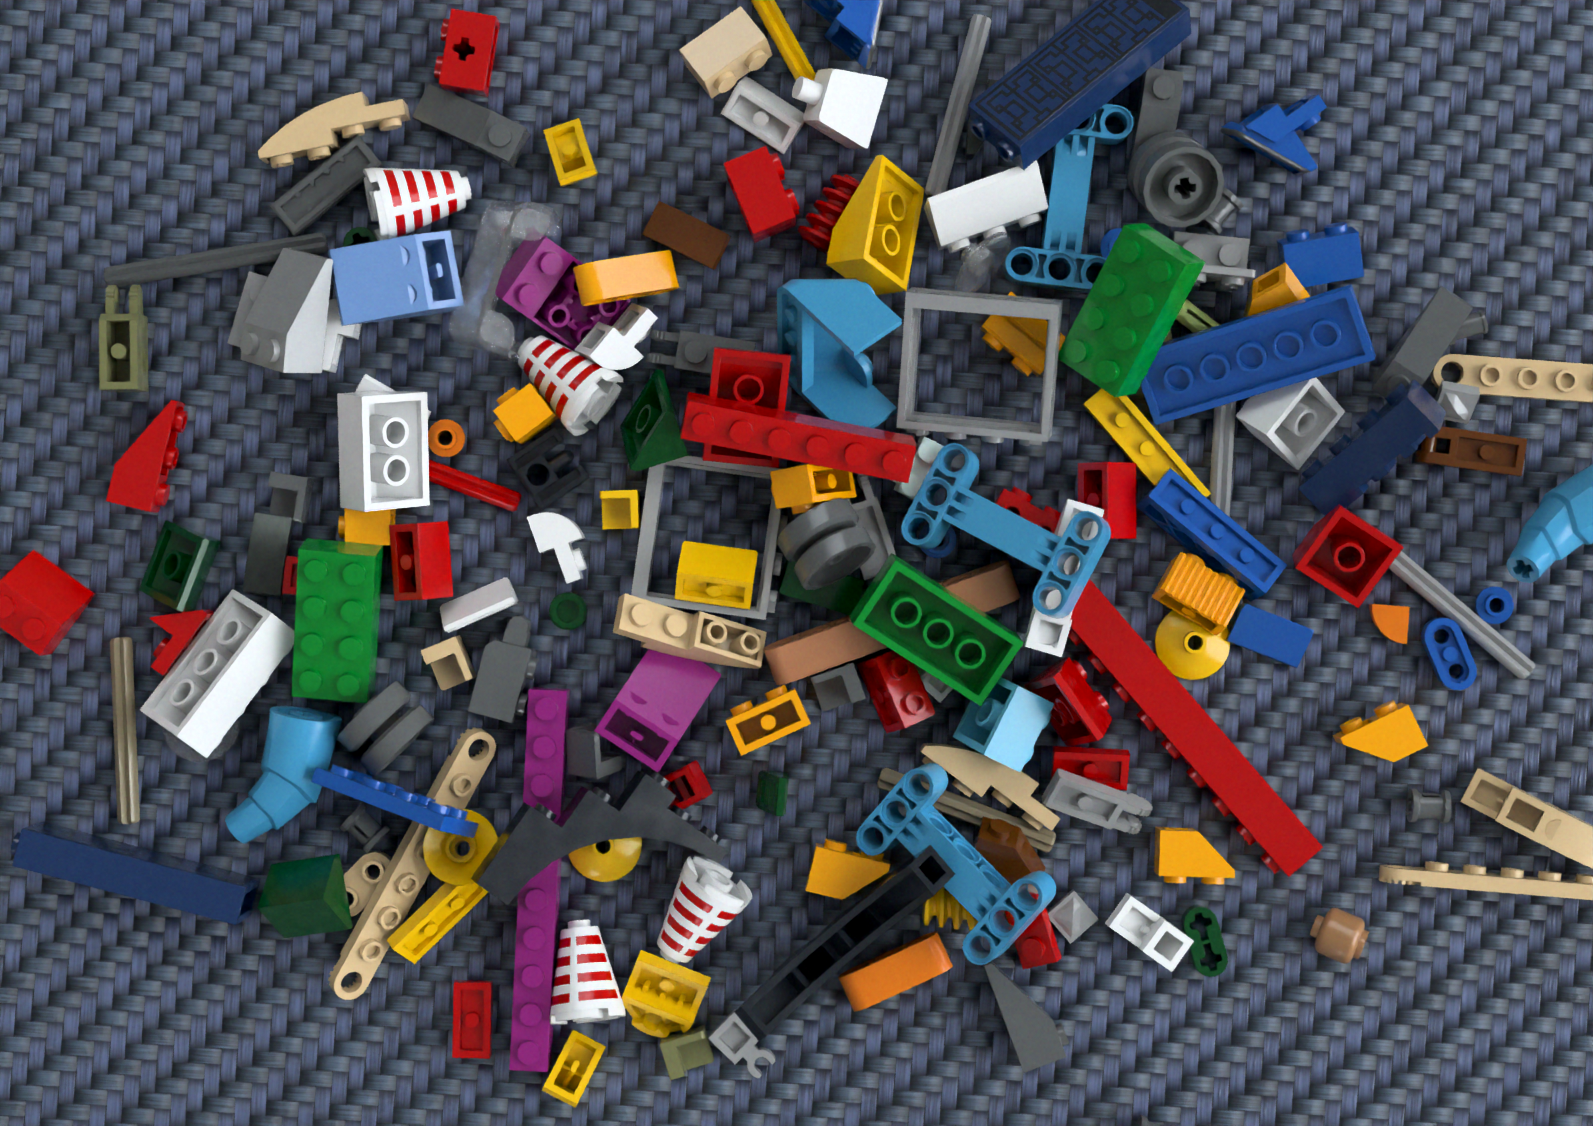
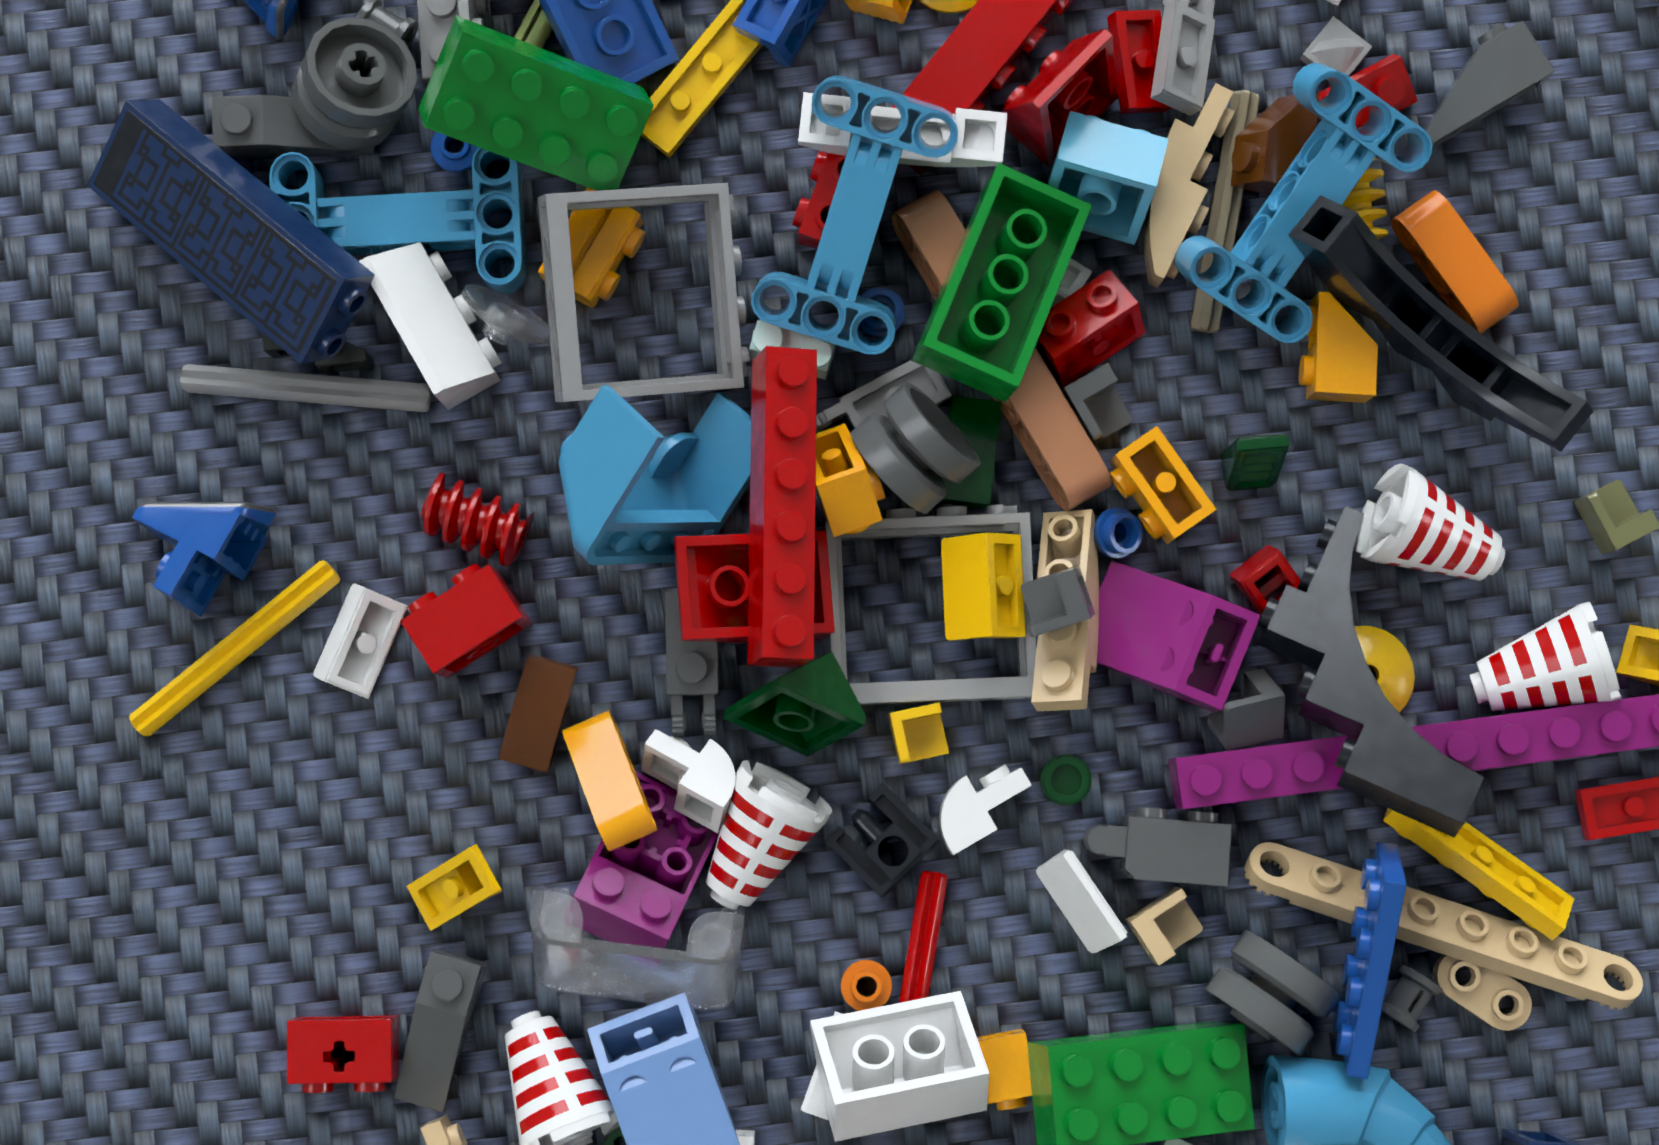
camera: 105 degrees left, 5 degrees down
(306, 897) = (1516, 1060): dark green slope -> none
(421, 561) = (1038, 987): red brick -> none
(442, 854) = (1440, 860): yellow dish -> none
(523, 414) = (816, 885): light orange brick -> none
(663, 995) = (1549, 558): yellow slope -> none
(694, 626) = (1057, 600): none -> dark grey panel
(726, 52) = (285, 702): tan brick -> none
(736, 690) = (1128, 533): none -> blue plate
(737, 1041) = (1590, 451): light grey plate -> none
(842, 104) = (329, 536): white torso -> none
(878, 229) = (486, 457): yellow slope -> none
(1112, 489) = (773, 96): red brick -> none

